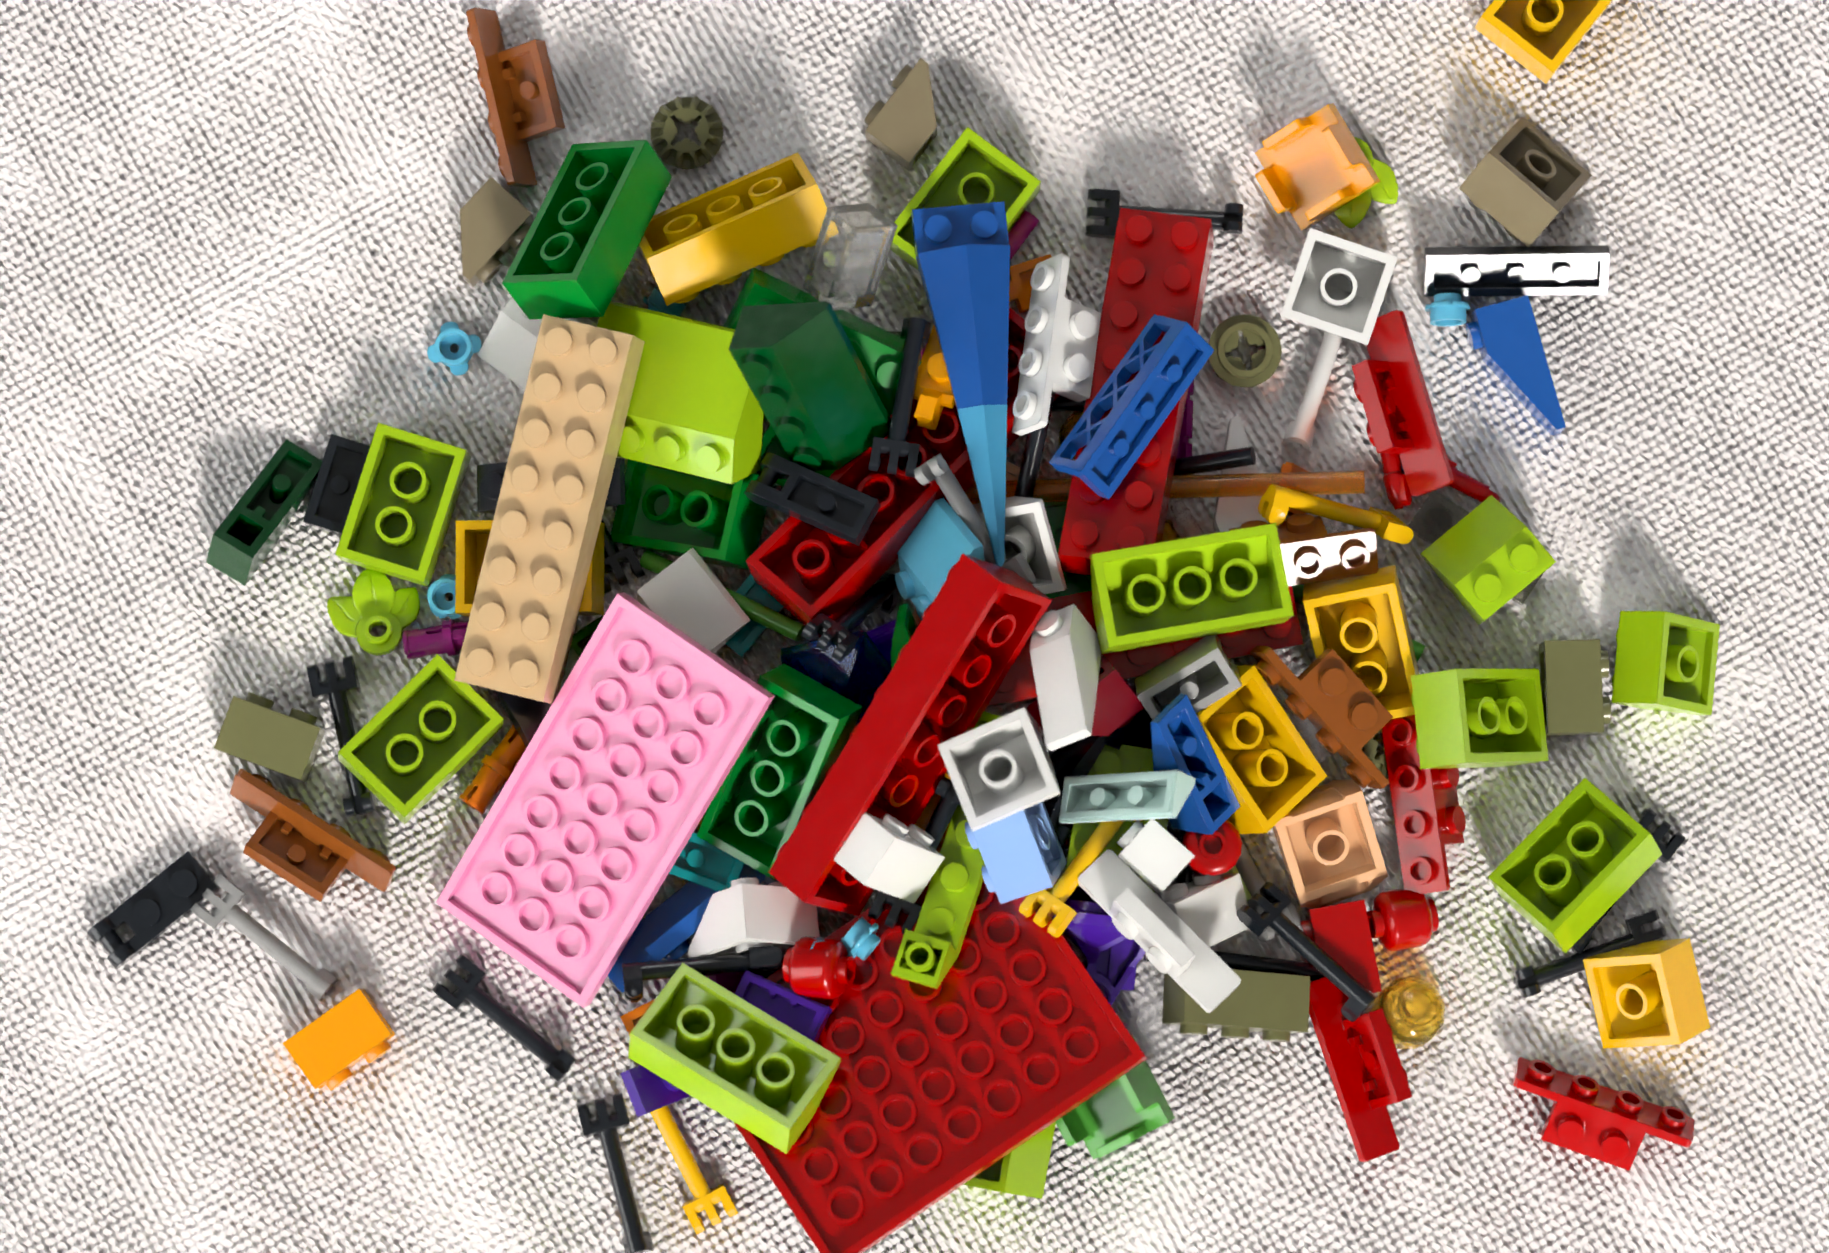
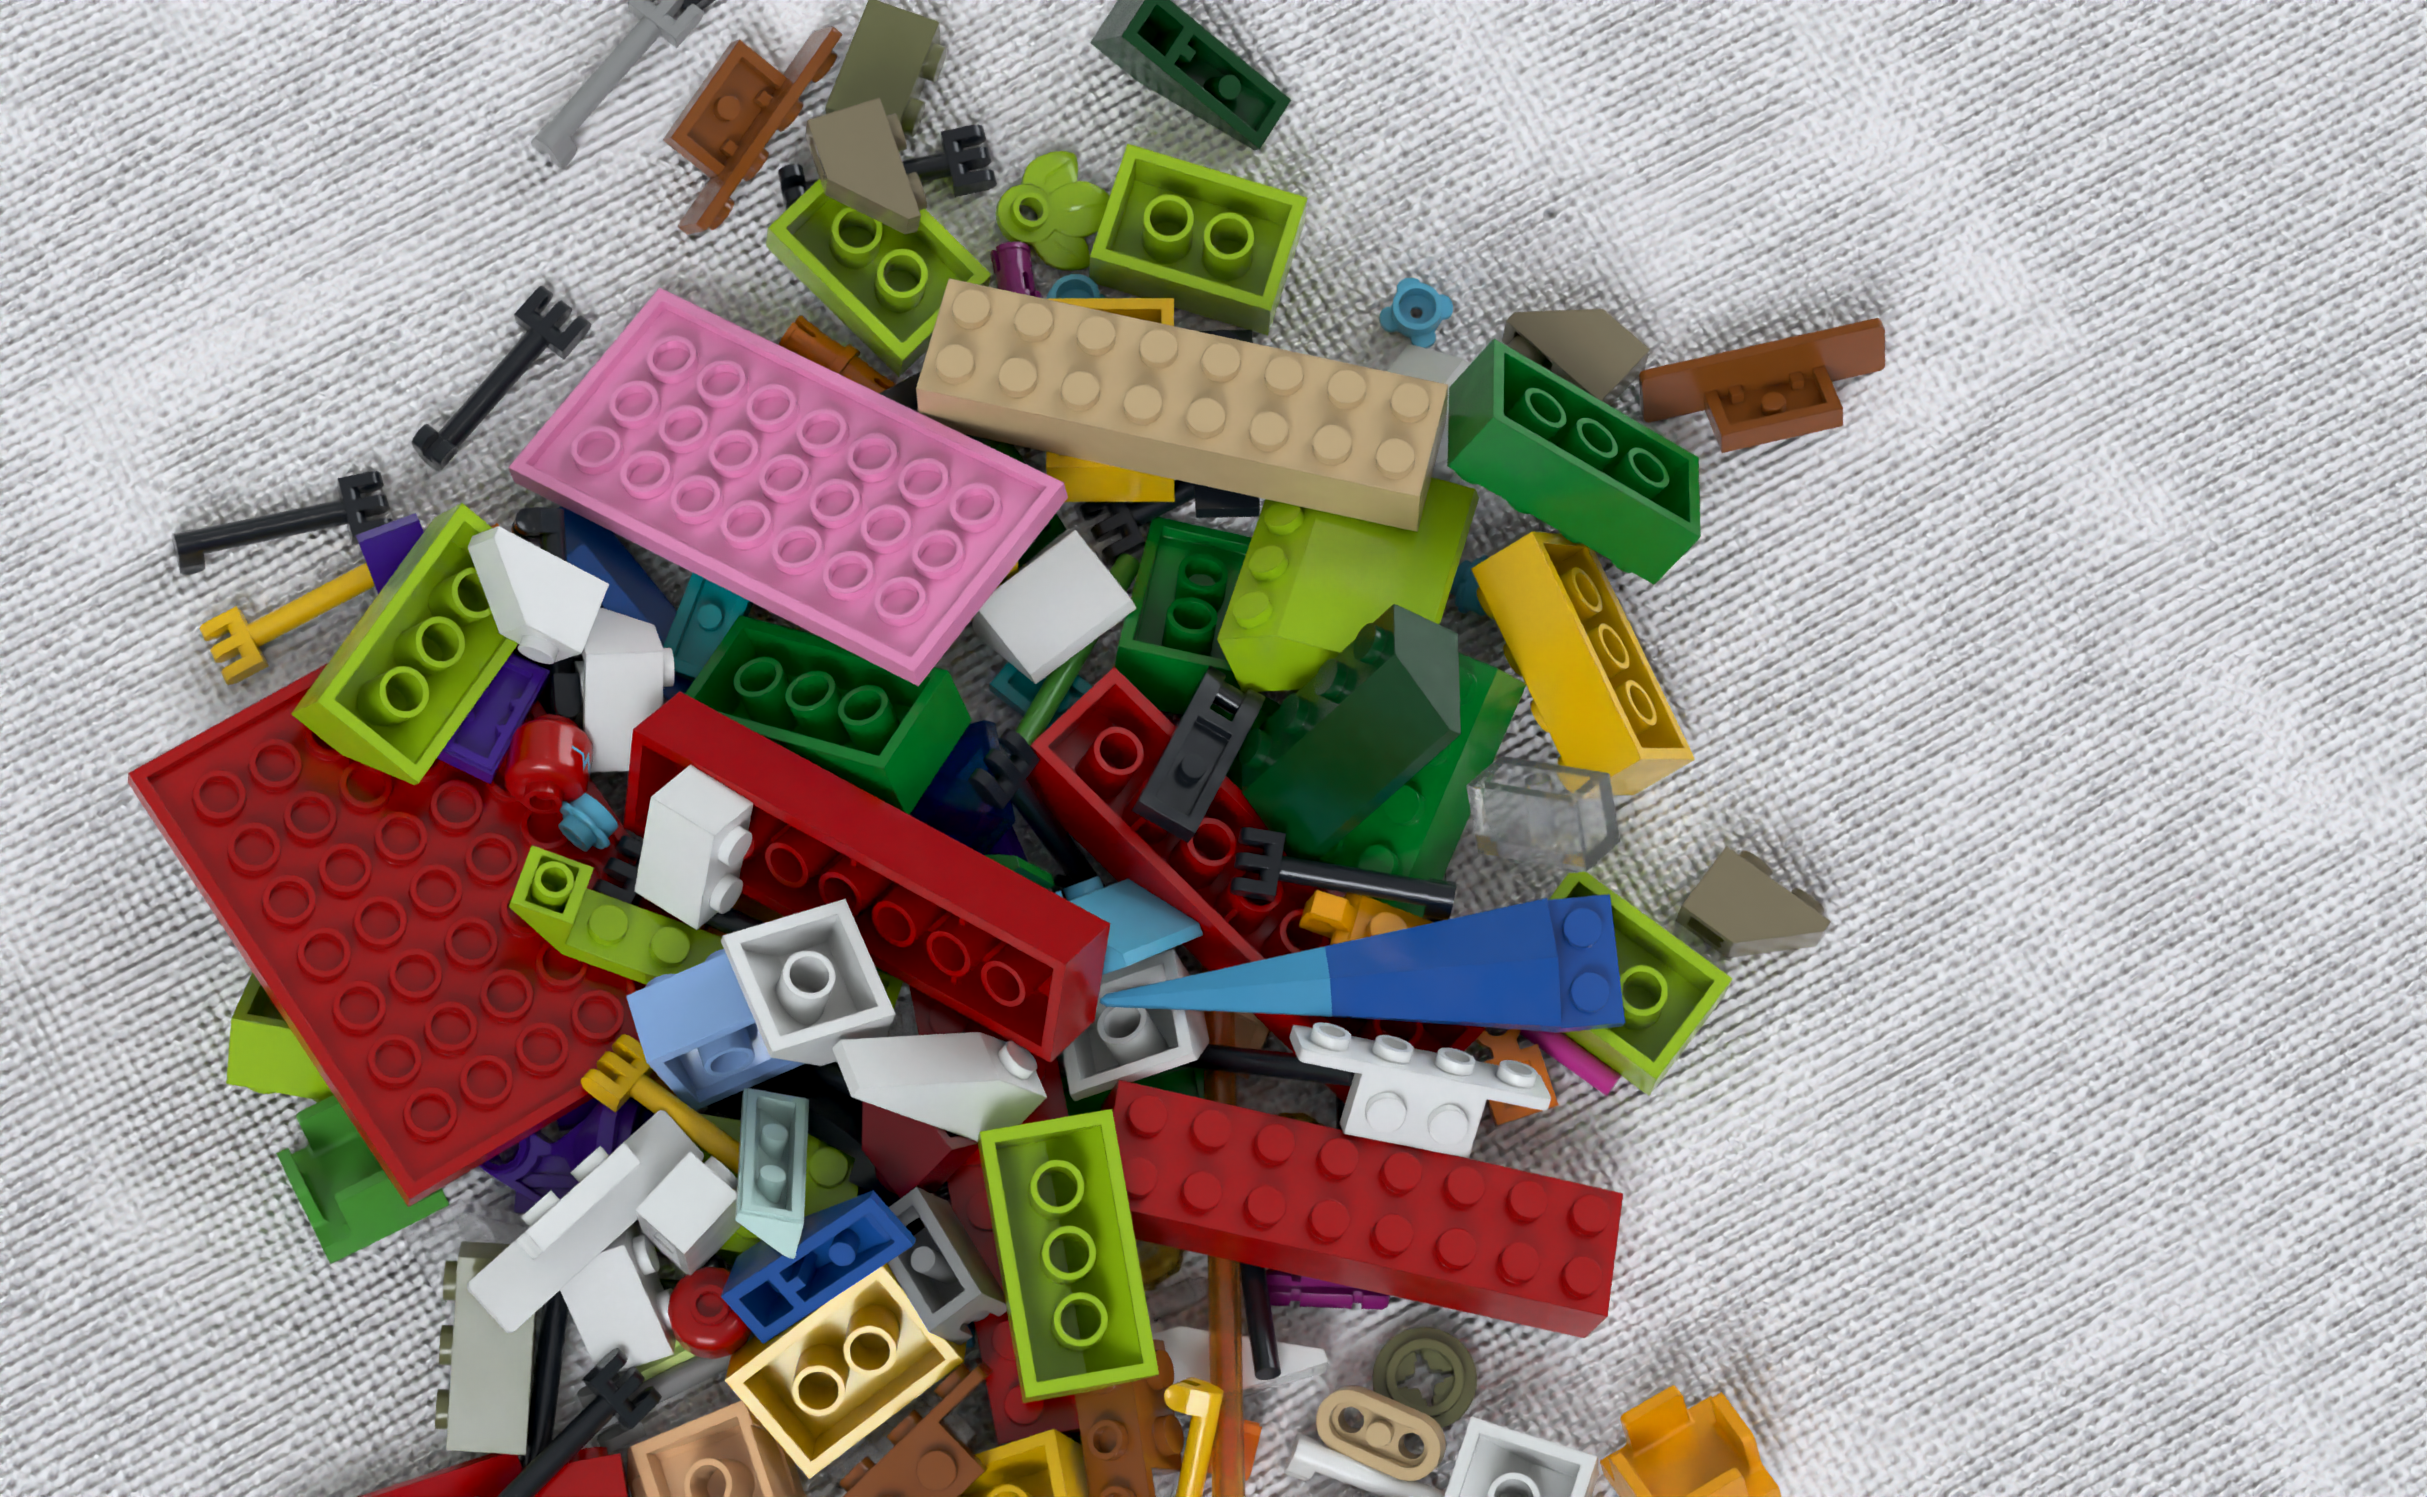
camera: 85 degrees right, 10 degrees down
(336, 484) = (1231, 152): black plate -> none
(340, 1040) = (477, 165): light orange brick -> none
(361, 745) = (862, 164): none -> dark tan slope
(686, 153) = (1723, 645): olive gear -> none
(701, 976) = (536, 595): none -> white slope
(938, 469) = (1239, 919): light grey hinge -> none
(1137, 406) = (1330, 1184): blue fence -> none
(1229, 221) = (1612, 1358): black hinge -> none
(1289, 382) = (1383, 1433): none -> tan plate

